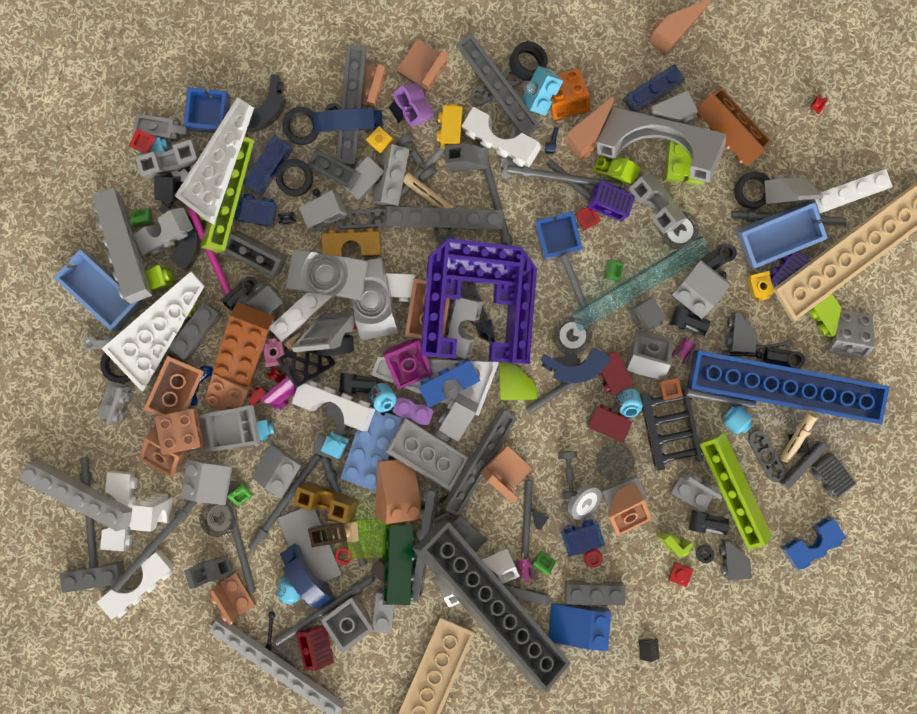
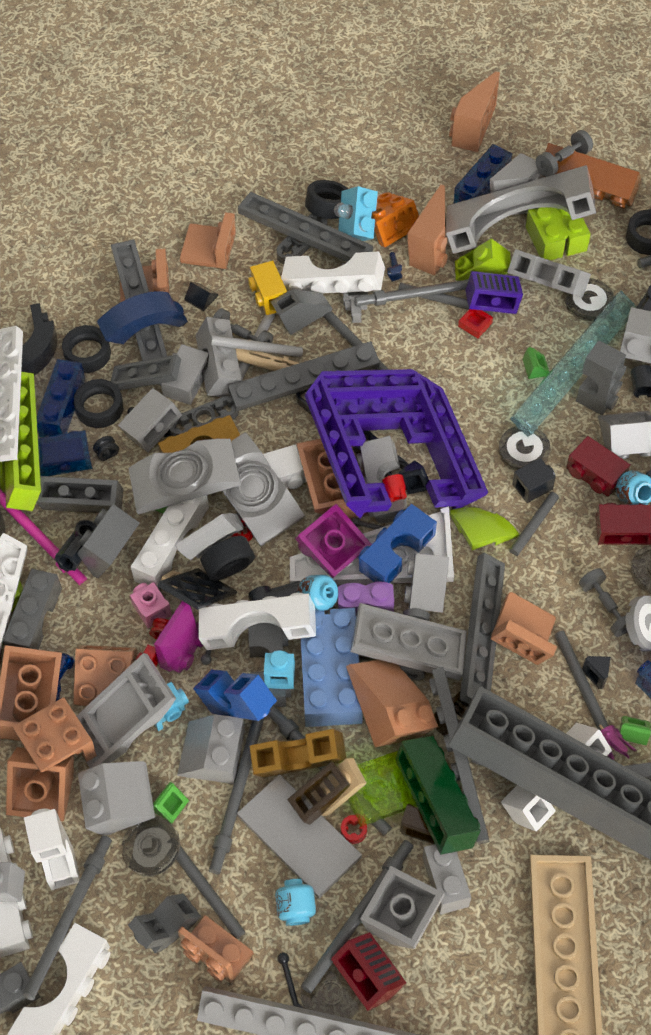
camera: 20 degrees left, 30 degrees down
(243, 344) = (104, 591): dark orange brick -> none
(300, 450) = (242, 698): none -> blue arch
(307, 585) = (315, 870): dark blue arch -> none
(379, 140) = (187, 326): yellow bracket -> none
(413, 103) = (214, 279): medium lavender brick -> none
(418, 180) = (255, 345): none -> light grey bar
(464, 344) = (395, 487): none -> red hose
(558, 235) = (456, 347): blue piece -> none
(573, 279) = (493, 380): dark grey bar -> none
(588, 369) = (549, 472): dark blue arch -> none
(736, 106) = (580, 142): none -> dark grey wheel

